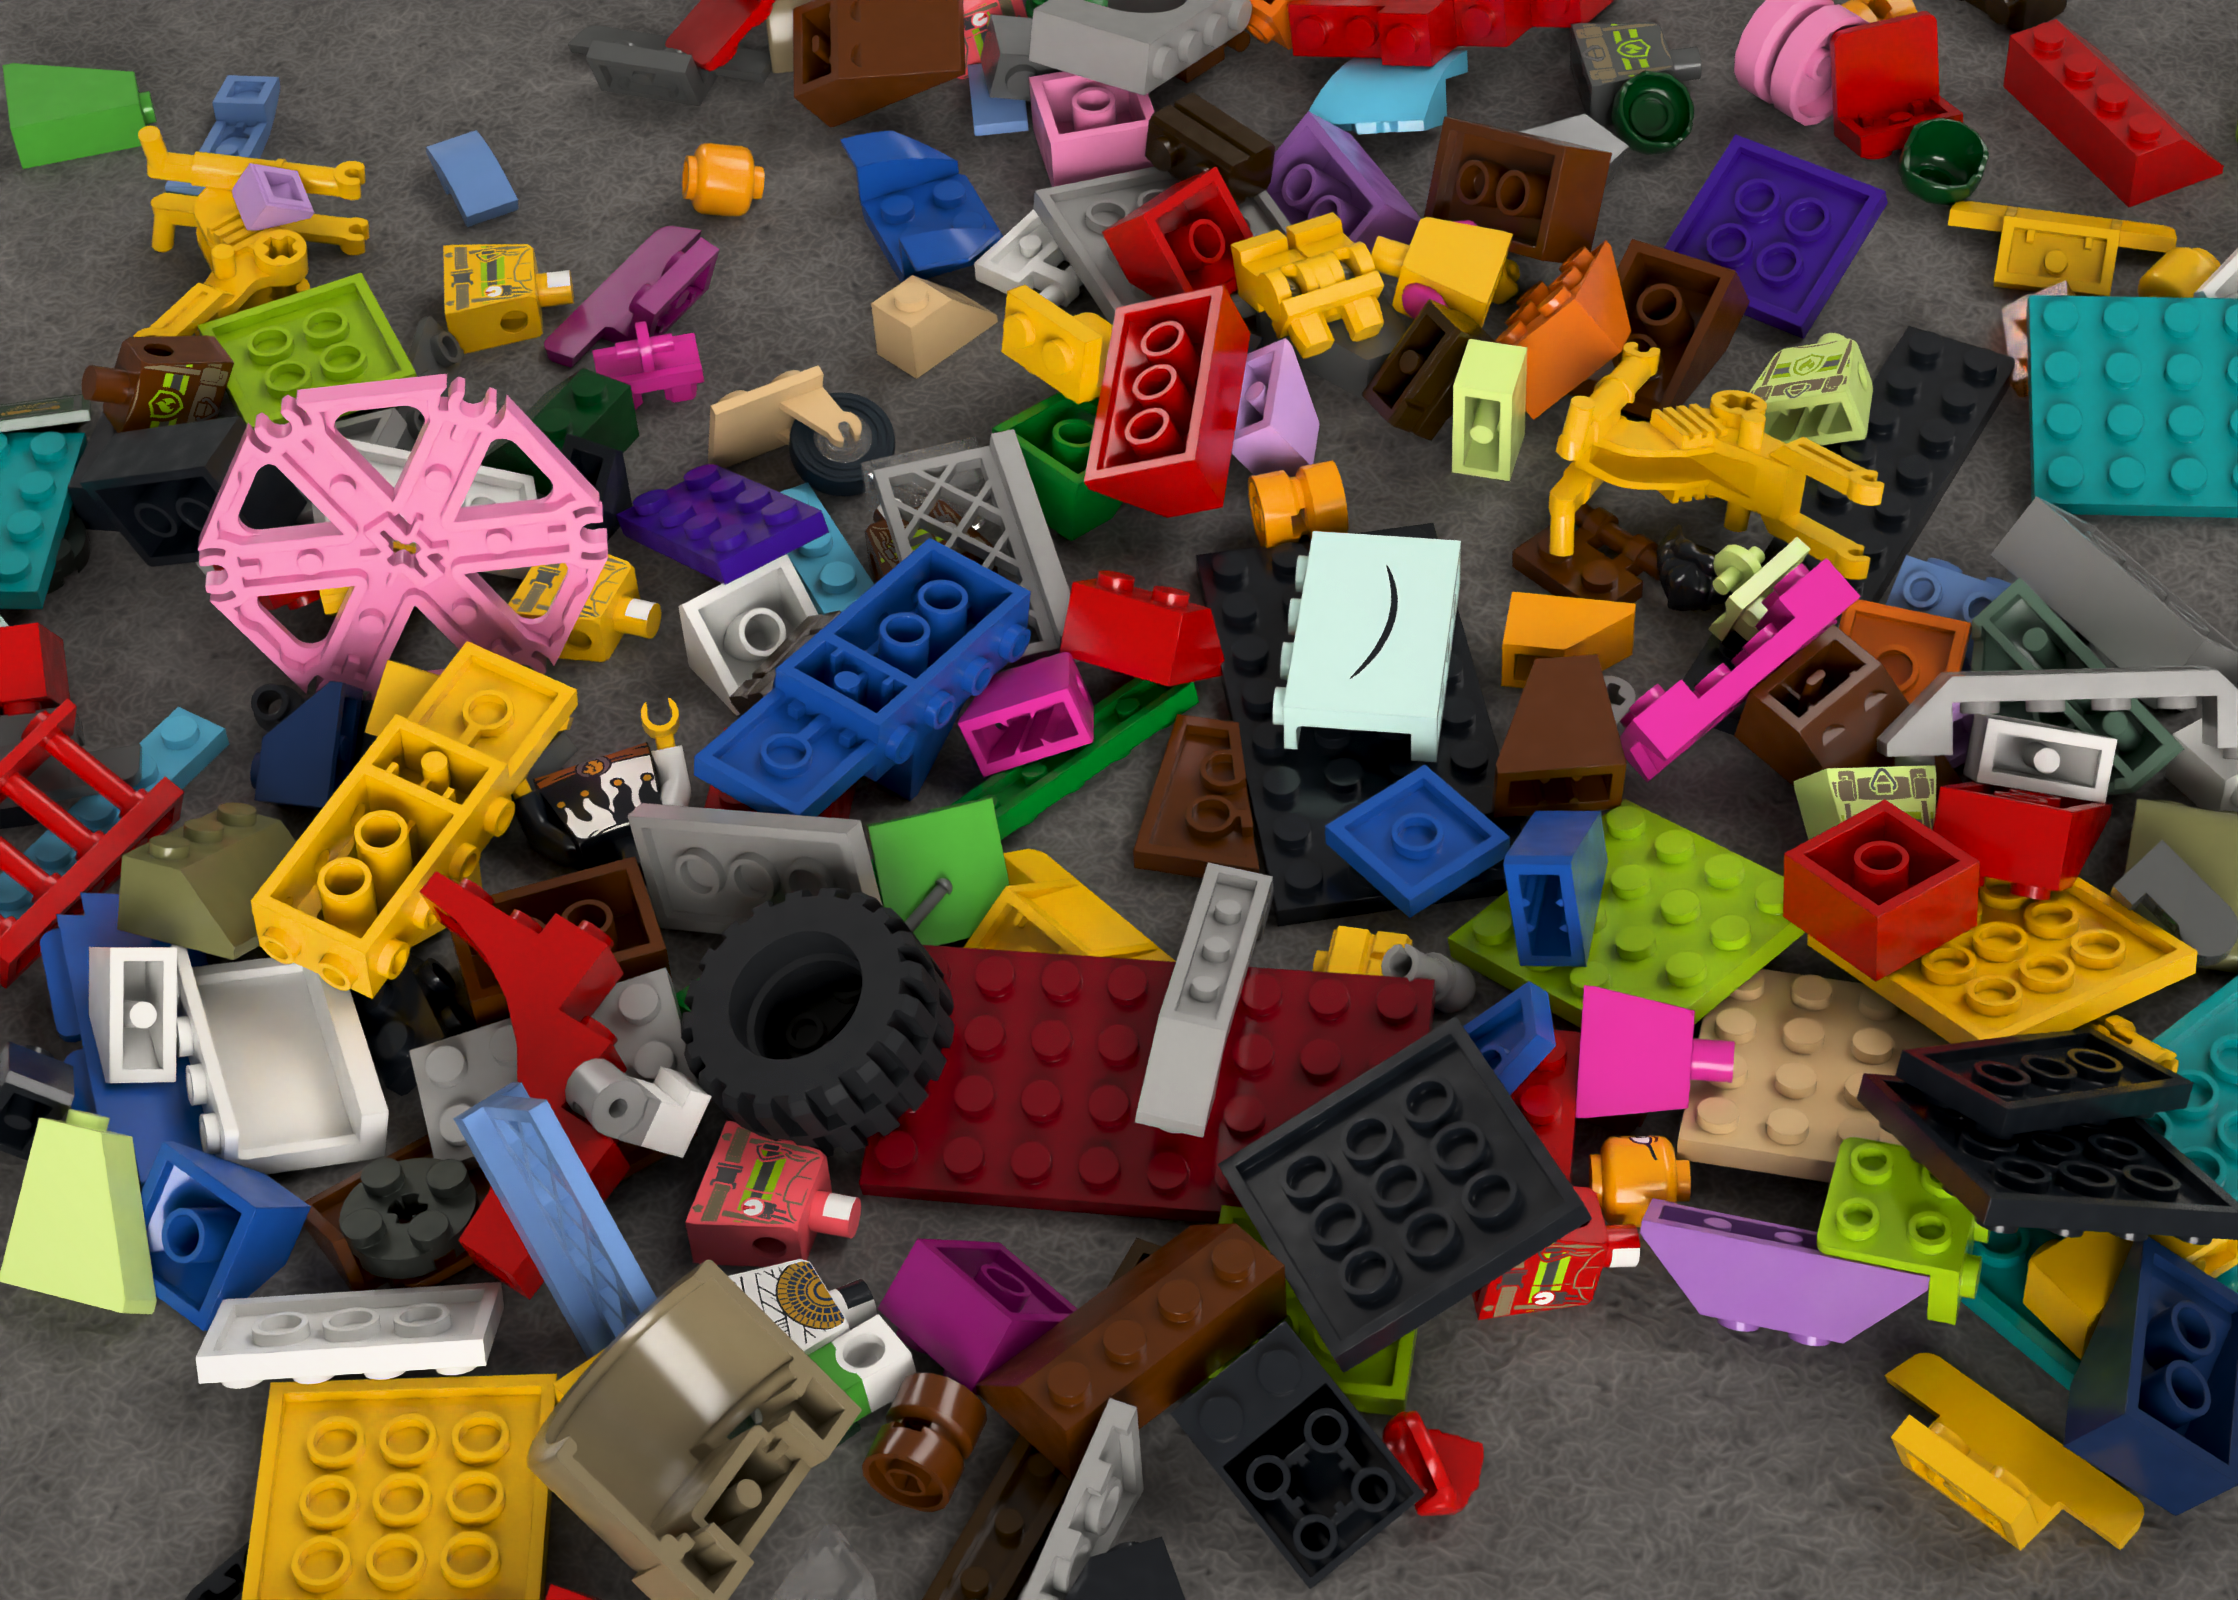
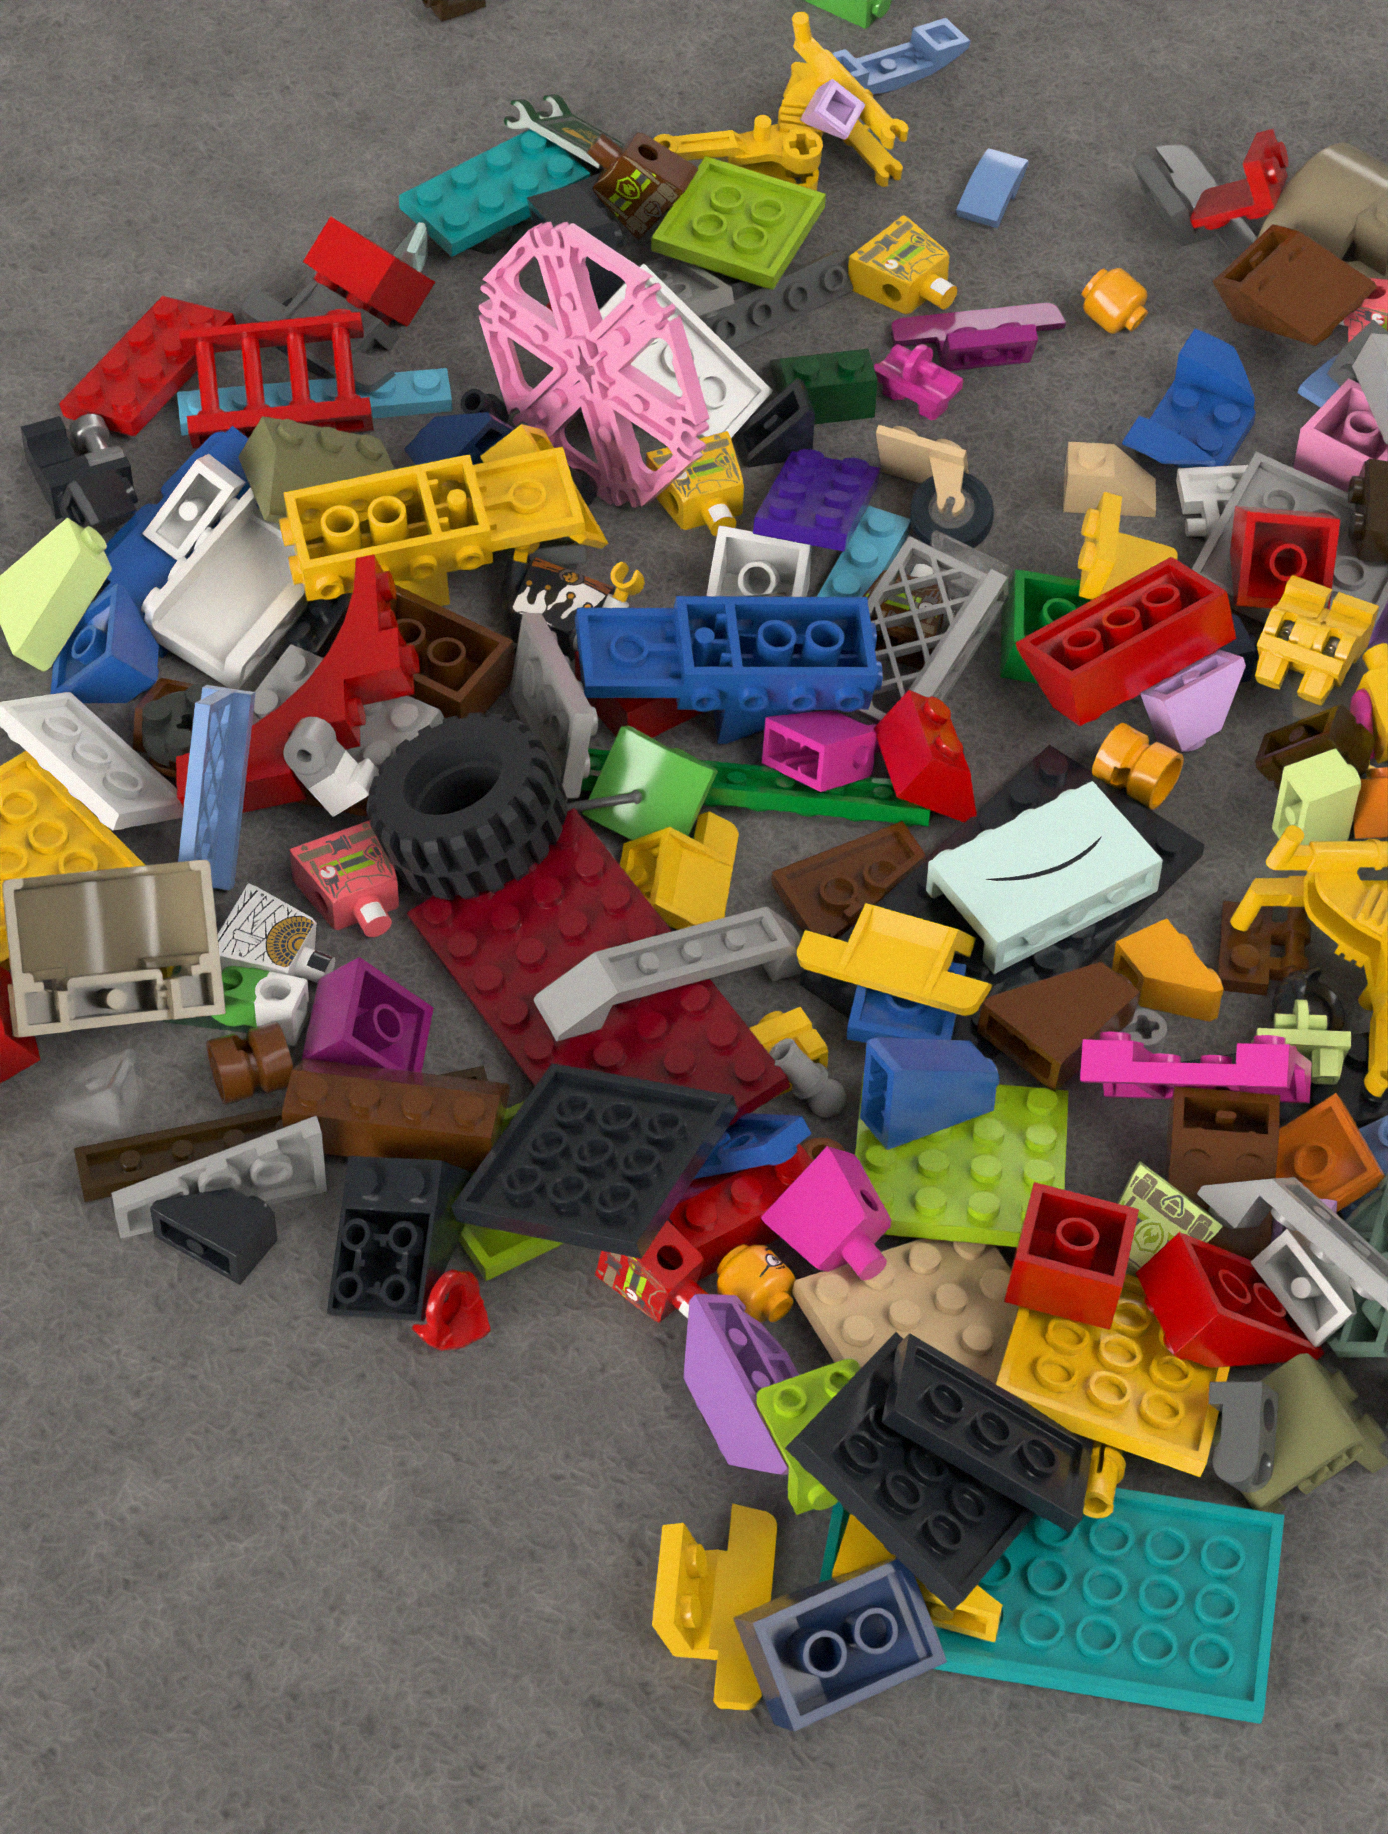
camera: 45 degrees right, 5 degrees up
(1374, 804) = (898, 958): none -> yellow plate

